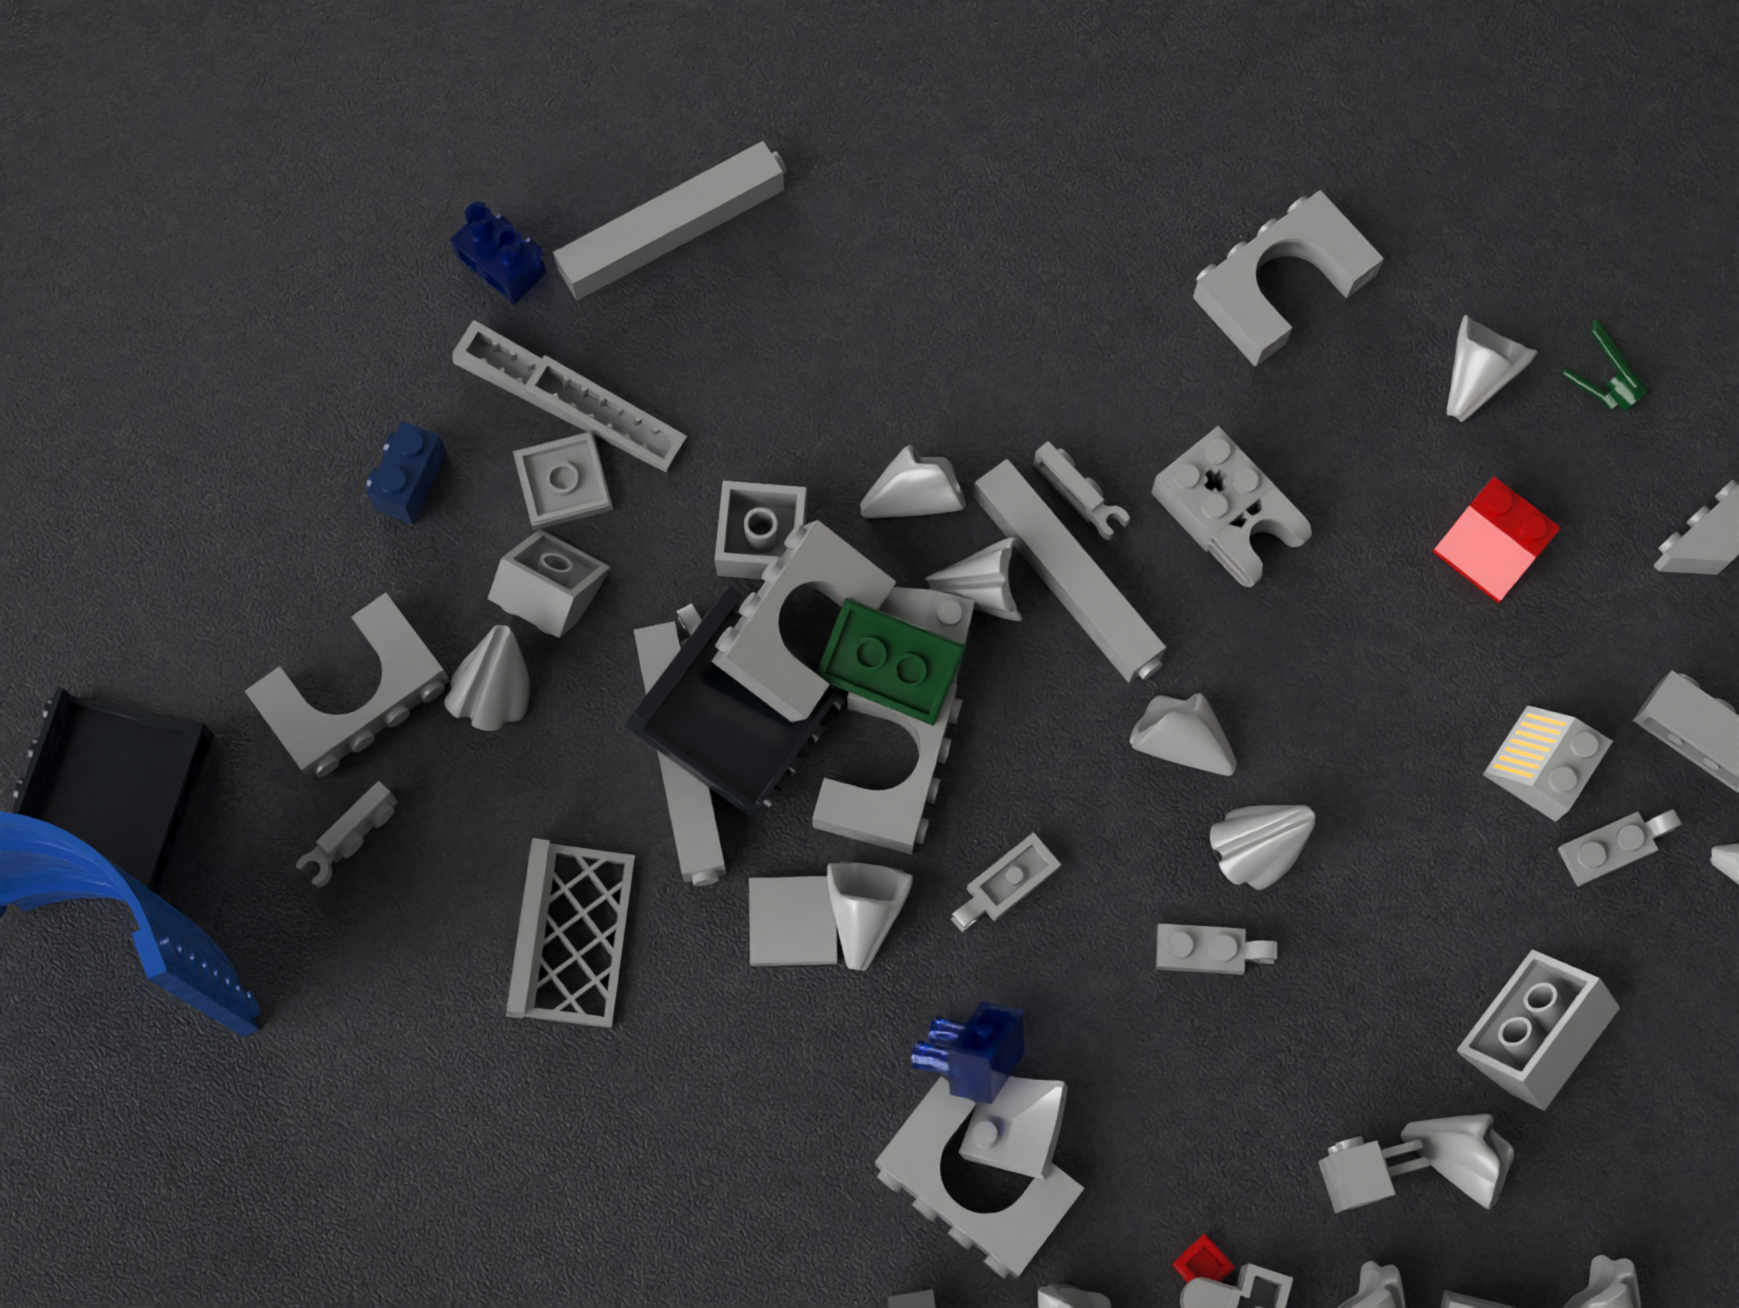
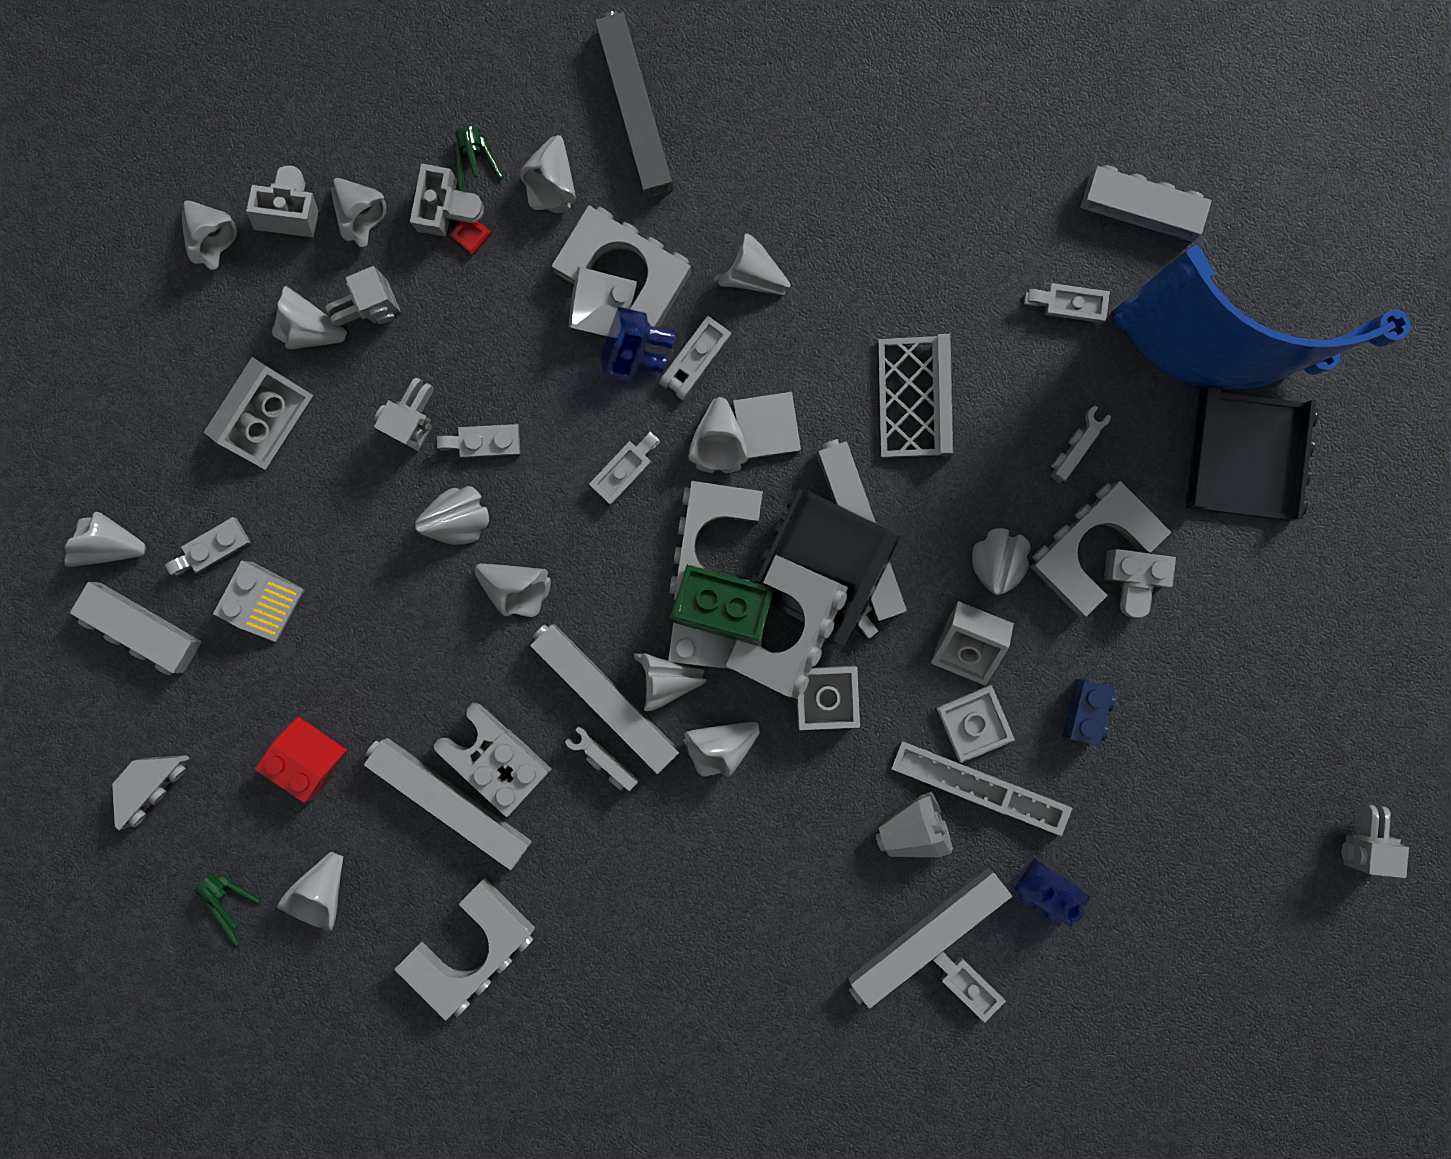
camera: 175 degrees right, 15 degrees up
(63, 252) = (1373, 848): none -> light grey brick
(179, 1178) = (1146, 203): none -> light grey brick
(302, 641) = (1138, 576): none -> light grey brick
(318, 1043) = (1071, 302): none -> light grey plate
(626, 156) = (969, 986): none -> light grey plate
(666, 349) = (916, 831): none -> light grey cone
(784, 1145) = (754, 270): none -> light grey hat
(883, 1032) = (696, 357): none -> light grey plate
(1299, 462) = (447, 802): none -> light grey brick
(1324, 980) = (404, 419): none -> light grey brick

